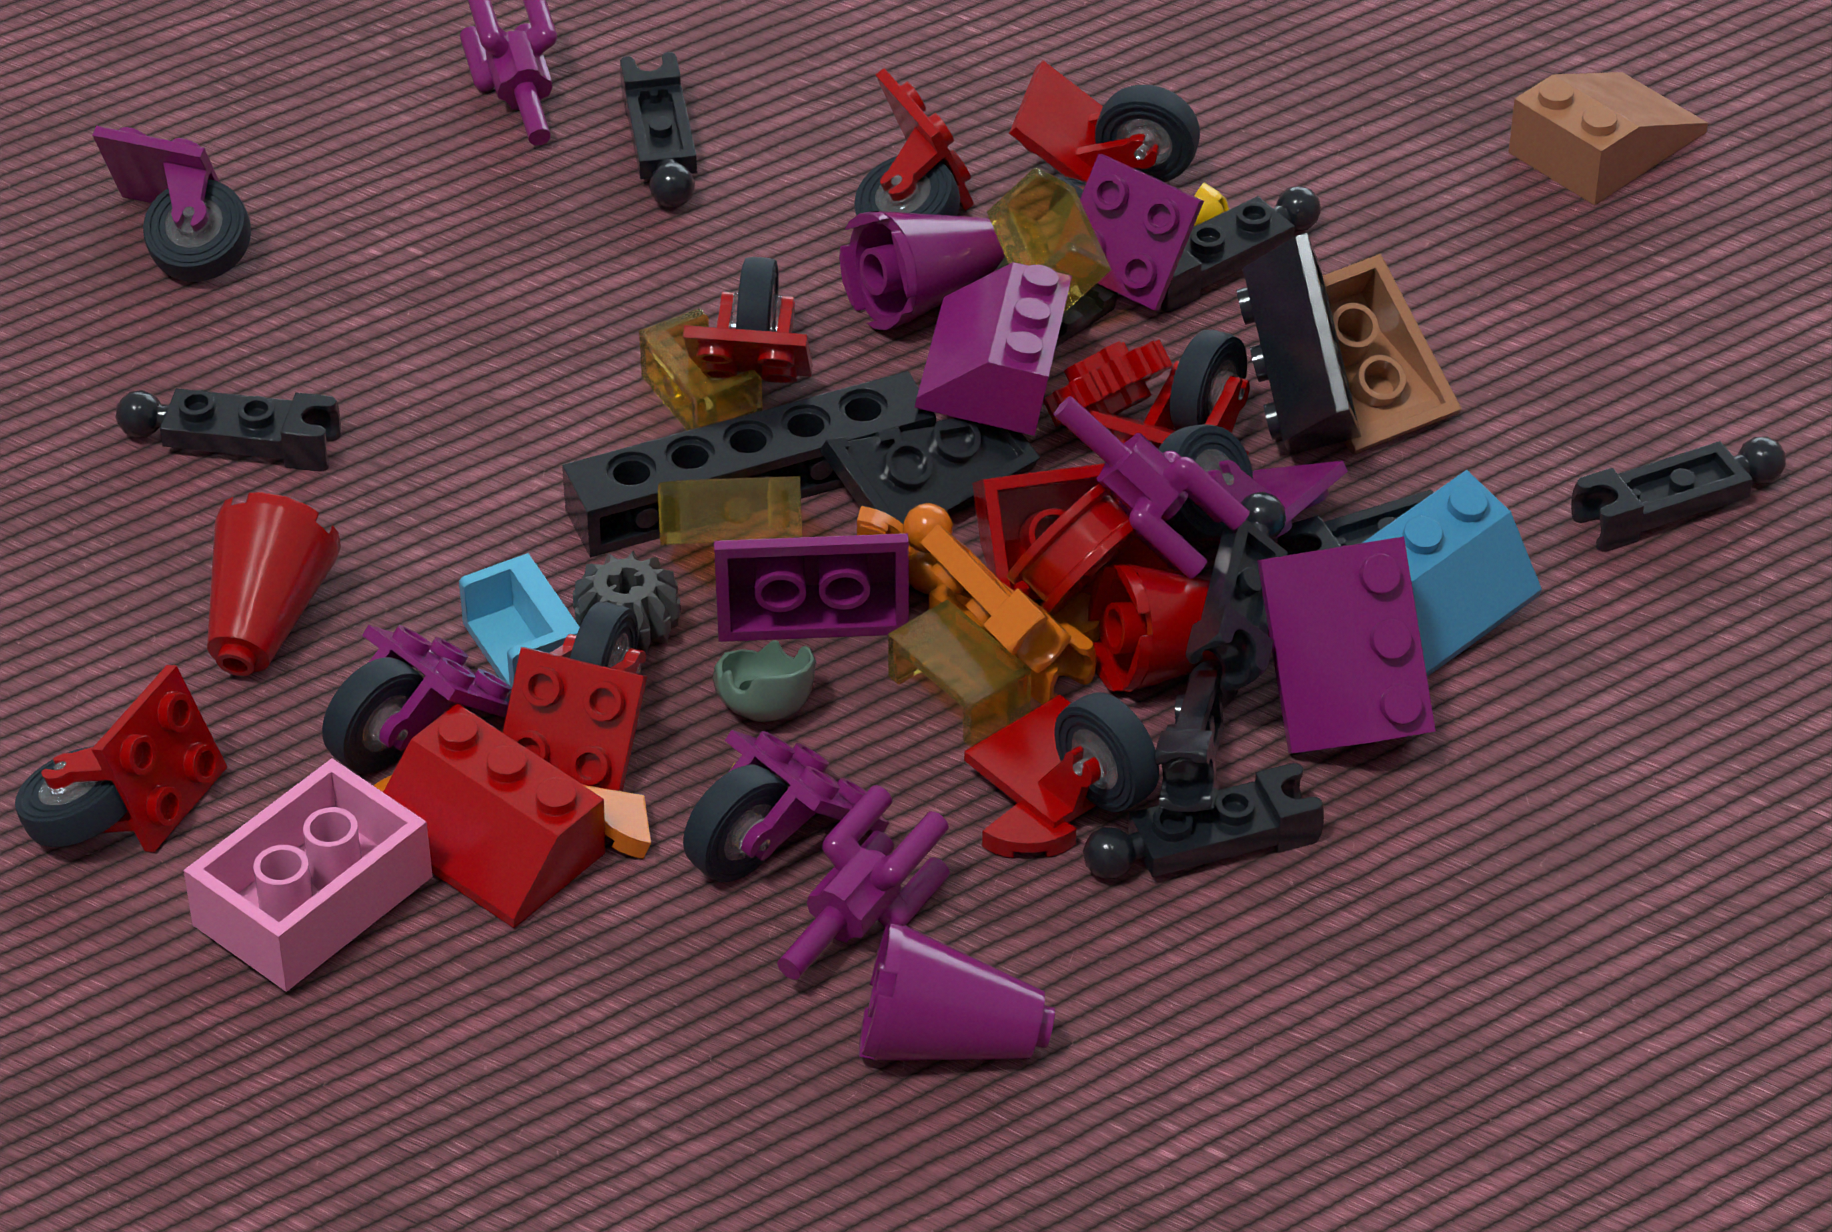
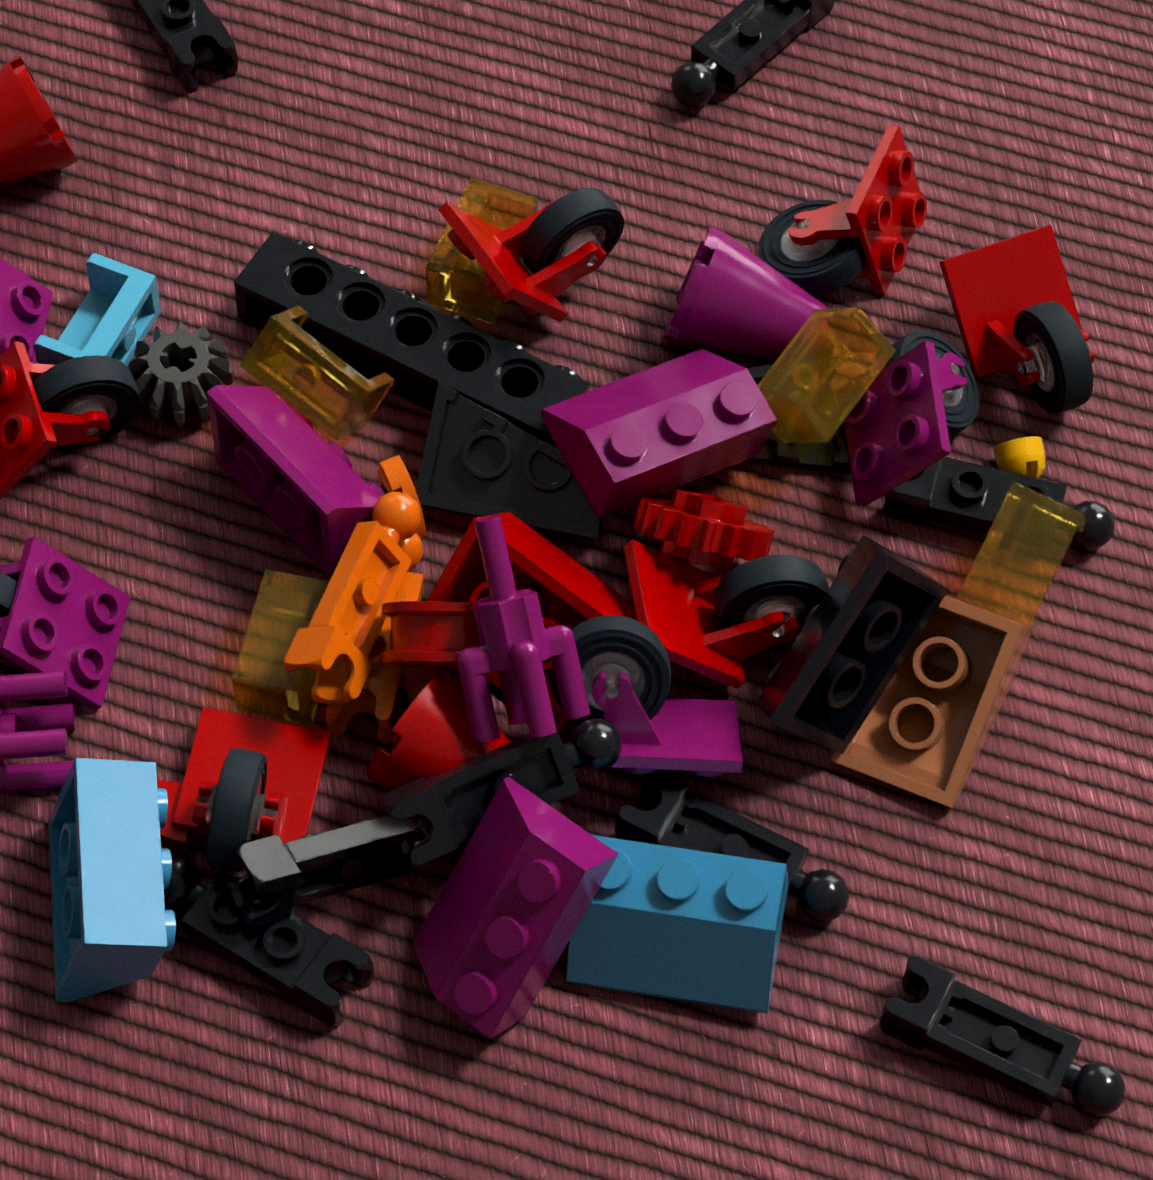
camera: 50 degrees right, 15 degrees up
(766, 682) = (166, 519): sand green hair -> none
(1079, 875) = (108, 877): none -> slope
(1299, 208) = (1021, 555): none -> clear yellow panel

